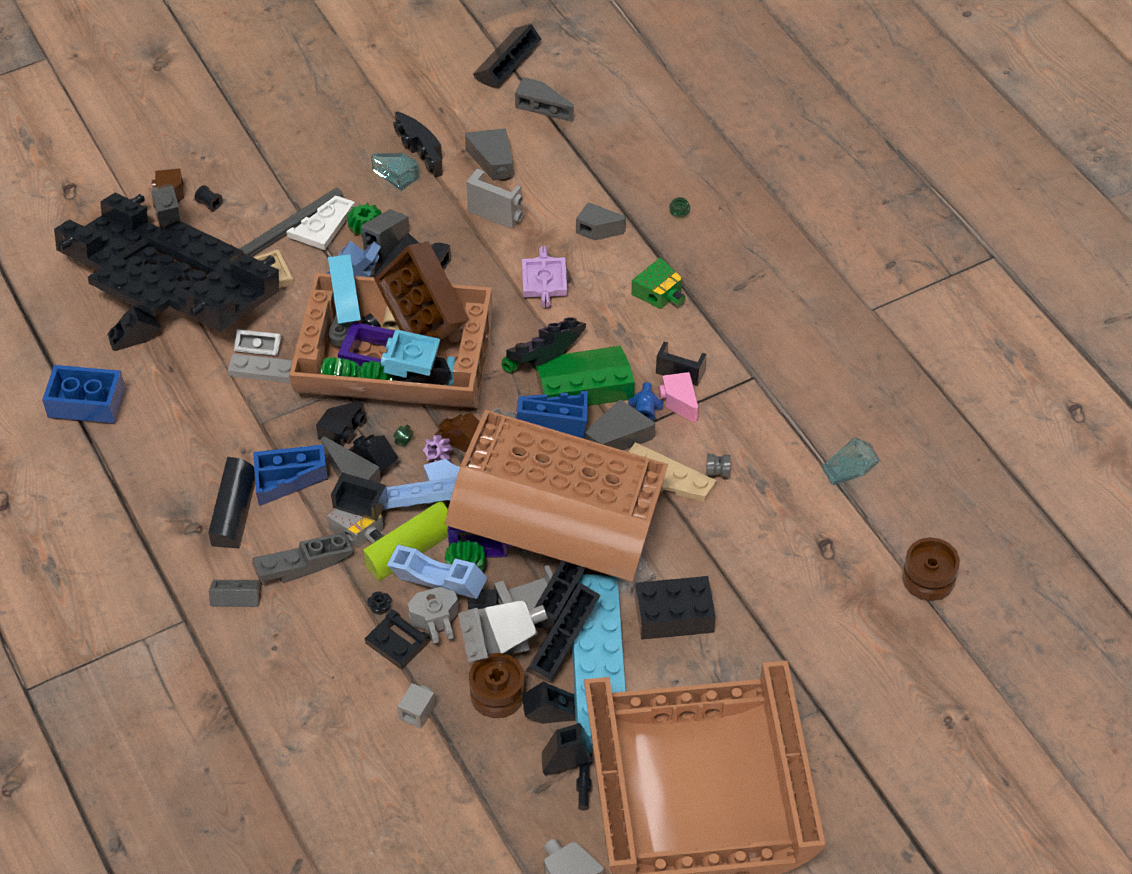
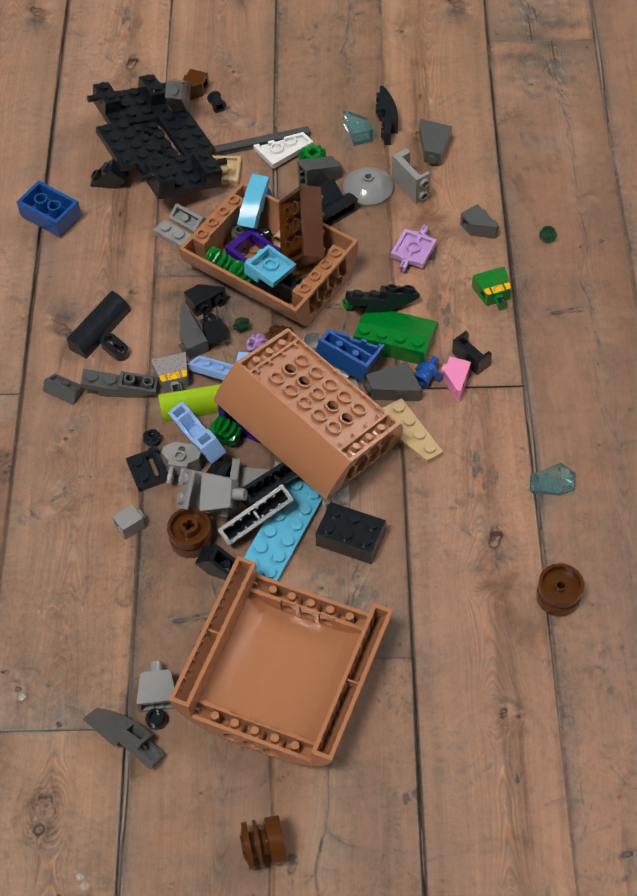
camera: 30 degrees right, 5 degrees up
(267, 519) = (112, 349): none -> black beam
(287, 471) = (145, 317): blue wedge -> none
(359, 496) = (177, 355): black panel -> none
(362, 261) = (286, 183): medium blue brick -> none
(448, 225) = (369, 185): none -> light grey dish
(507, 56) = (491, 72): black brick -> none
(542, 99) = (494, 113): dark grey slope -> none
(566, 749) = (203, 600): black slope -> none
(718, 465) = (450, 441): dark grey wheel -> none

